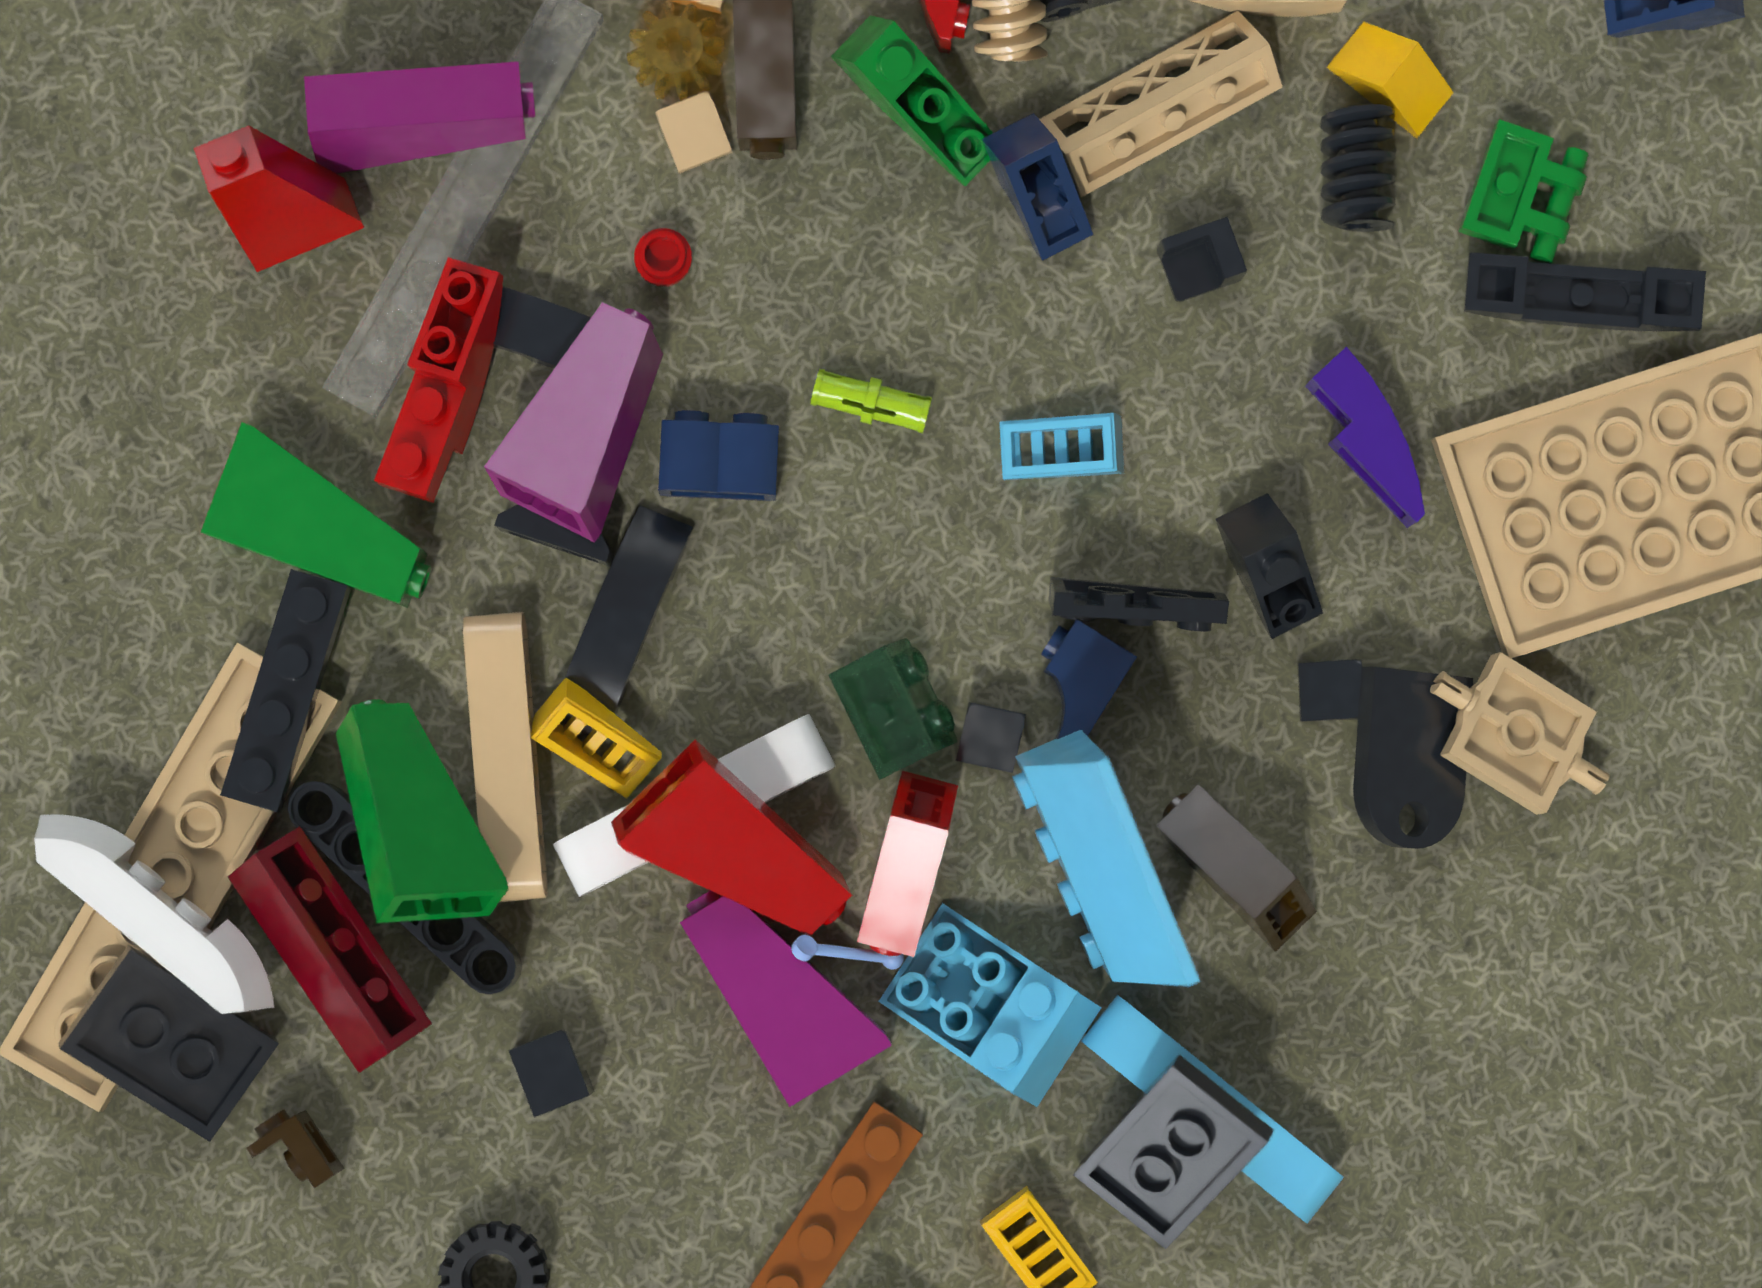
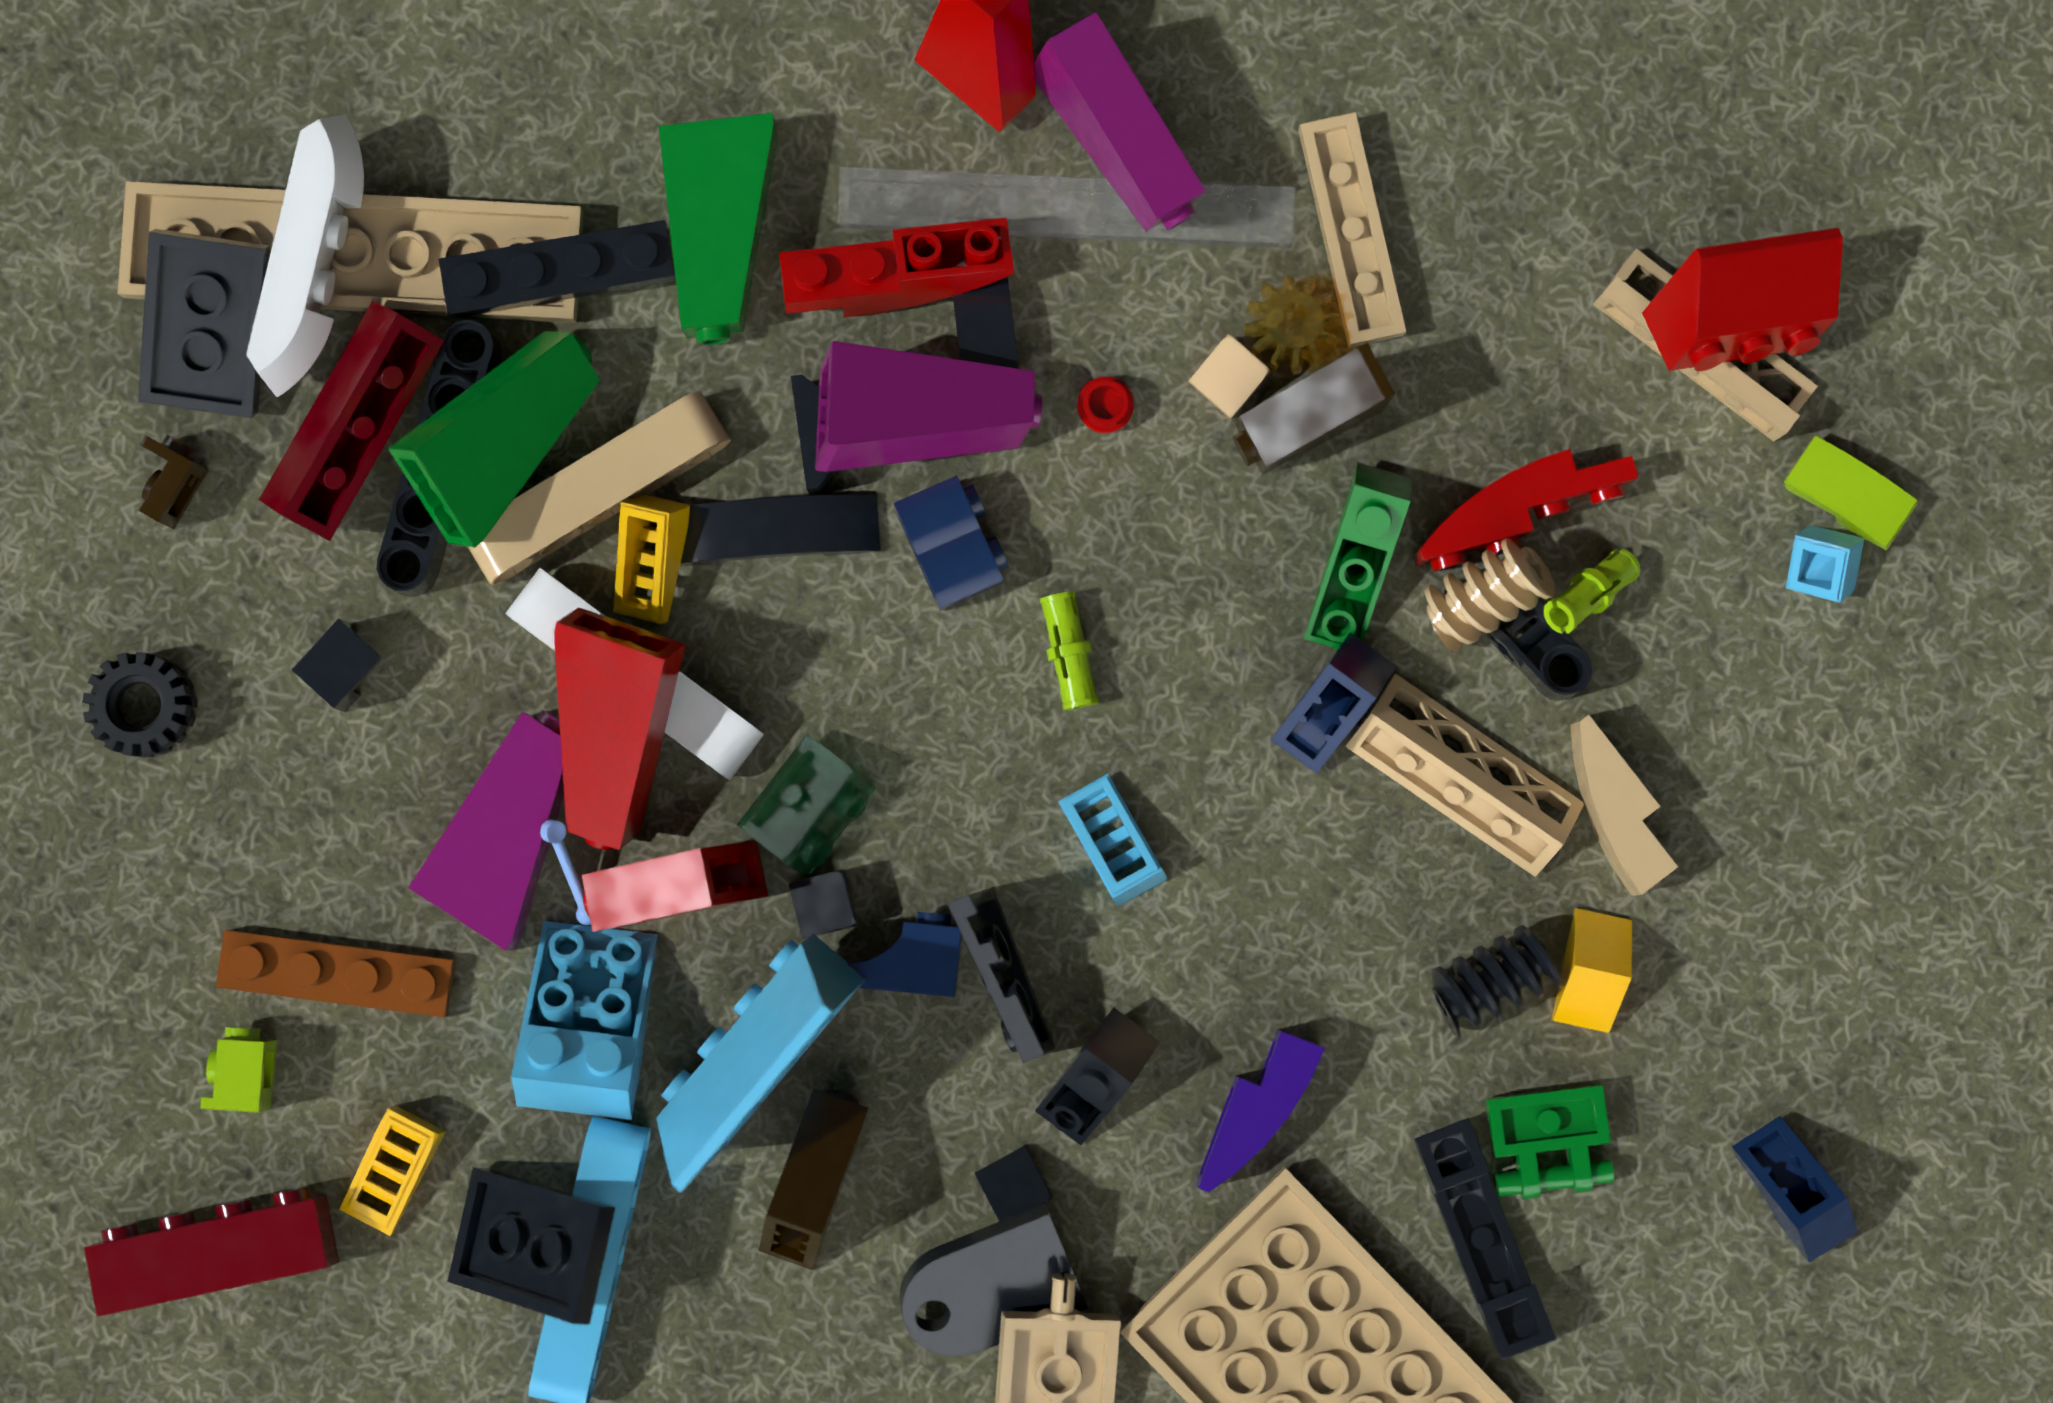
camera: 65 degrees right, 0 degrees up
(1201, 259) = (1341, 881): black panel -> none

